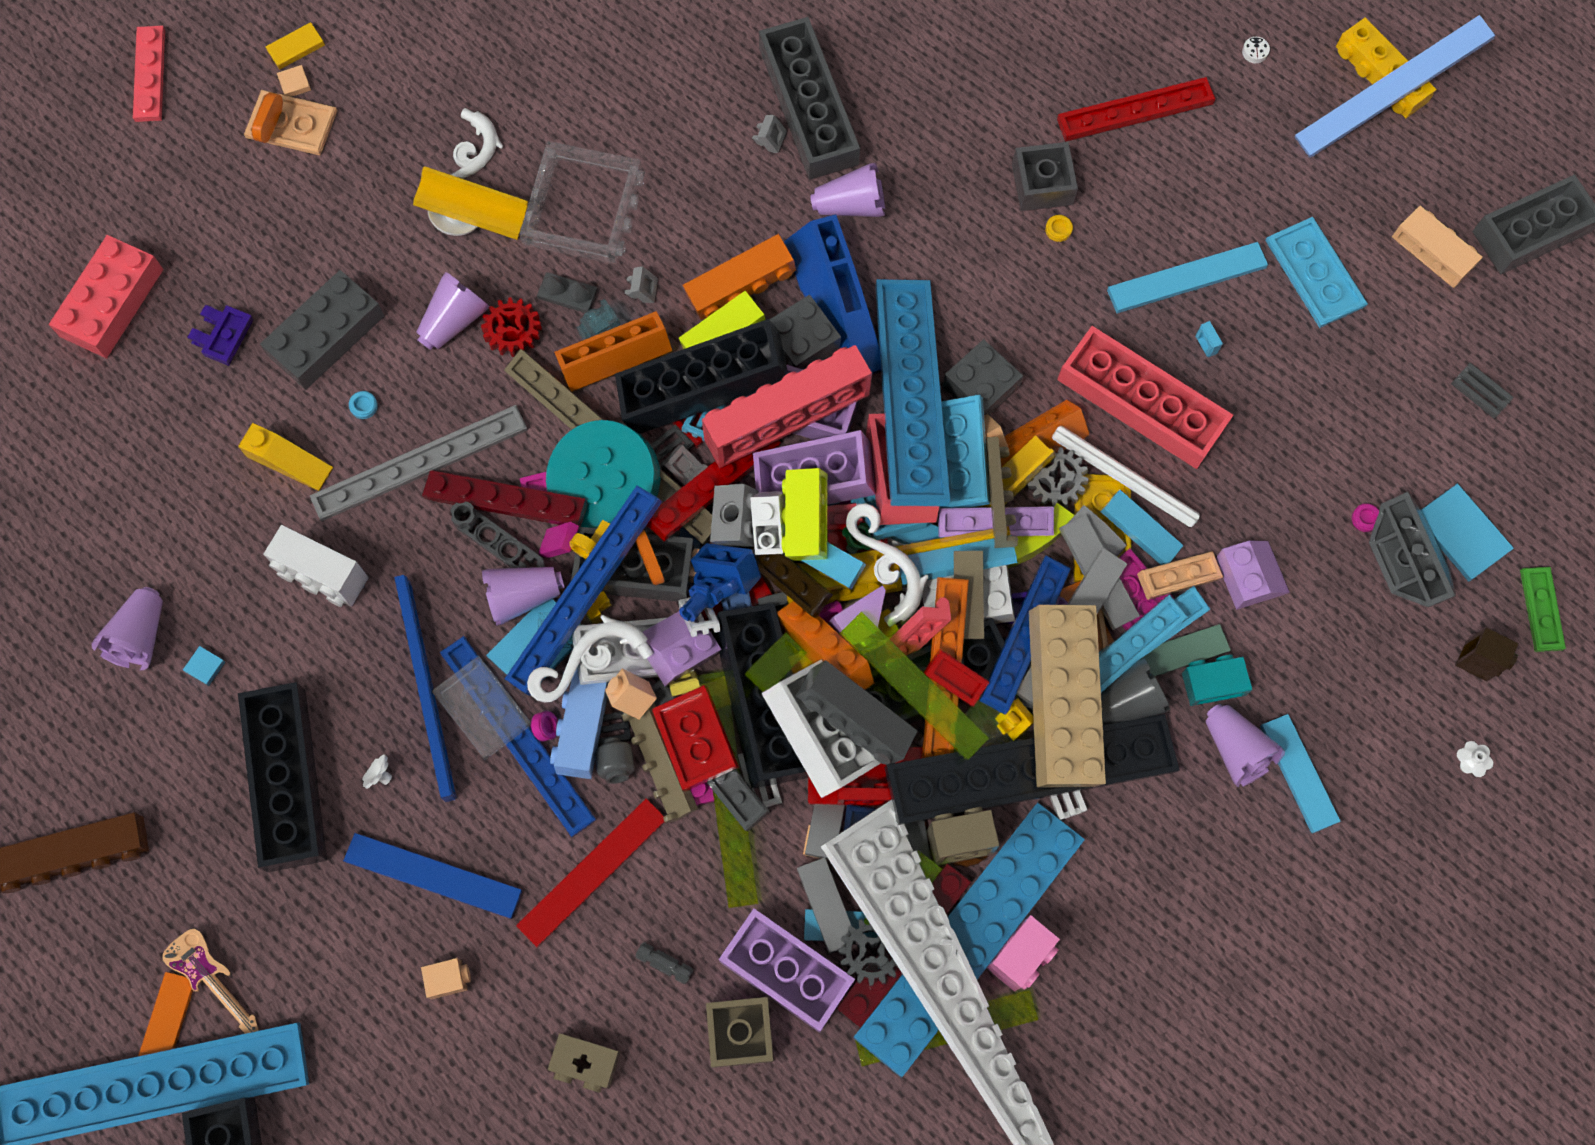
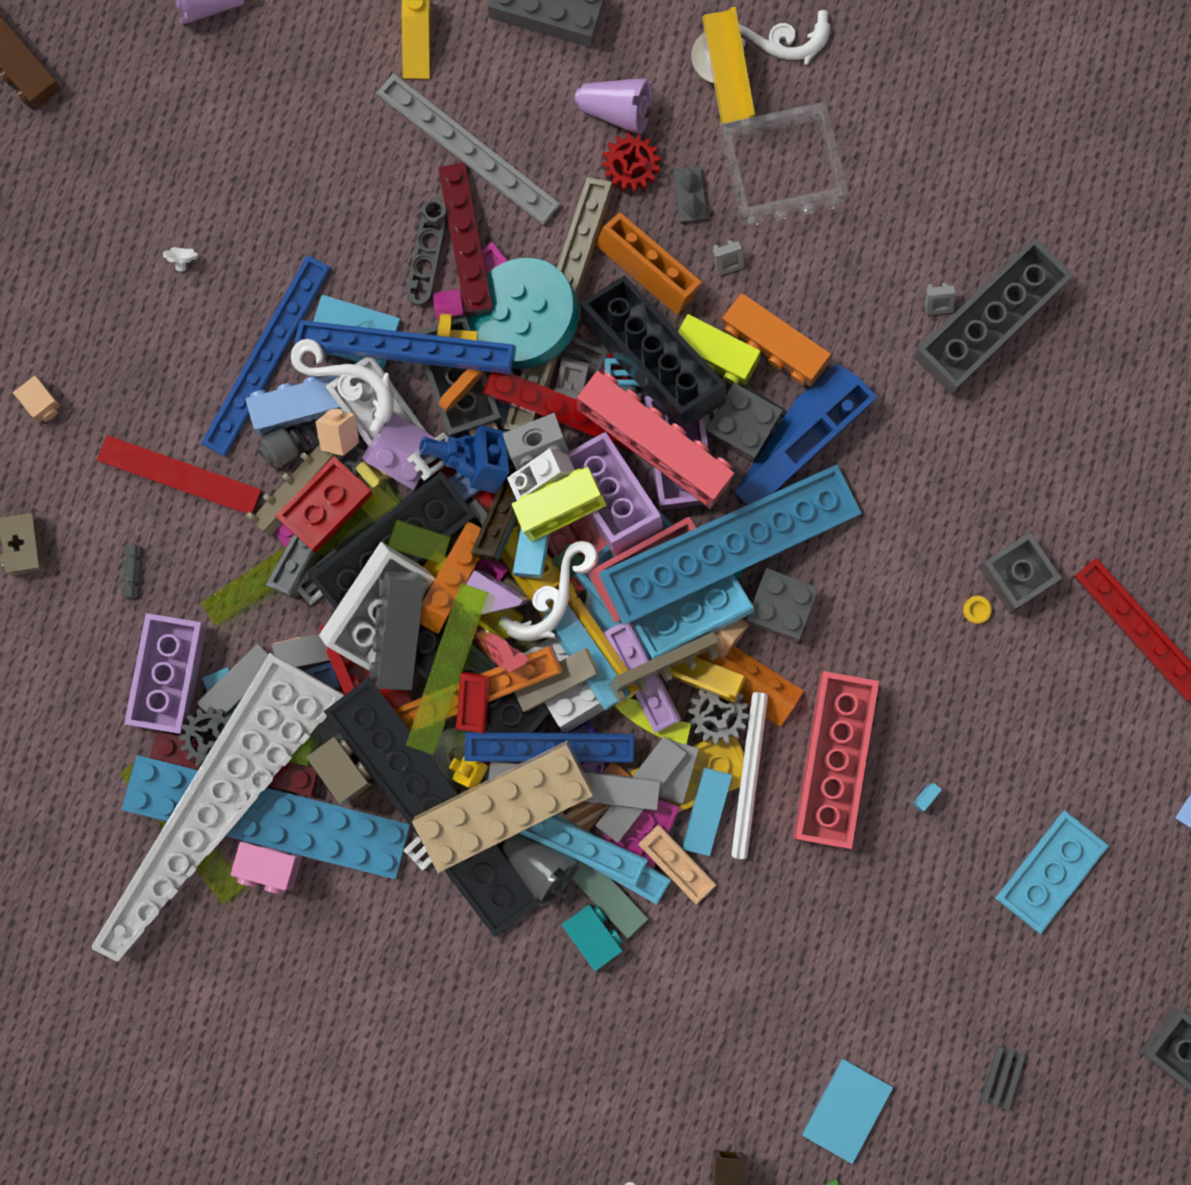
camera: 65 degrees right, 10 degrees up
(204, 665) = (206, 68): medium azure tile -> none
(282, 777) = (139, 182): black brick -> none
(315, 567) = (326, 112): white brick -> none
(363, 405) = (498, 73): medium azure tile -> none
(425, 689) = (269, 258): blue tile -> none
(433, 876) = (117, 347): blue tile -> none
(481, 707) = (273, 314): clear tile -> none
(519, 590) = (387, 292): lavender cone -> none
(544, 725) = (282, 373): dark pink tile -> none
(598, 321) = (671, 237): clear light blue brick -> none
(600, 604) = (401, 367): yellow tile -> none
(739, 1032) = (97, 659): dark tan brick -> none
(851, 194) = (911, 403): lavender cone -> none
(1187, 277) = (985, 752): medium azure tile -> none
(1242, 745) = (541, 981): lavender cone -> none
(1251, 573) = (712, 930): lavender slope -> none
(1301, 775) = (543, 1046): medium azure tile -> none
(1365, 517) = (818, 1015): dark pink tile -> none
(1410, 553) = (797, 1069): dark grey wedge -> none
(1437, 246) = (1134, 978): light nougat brick -> none

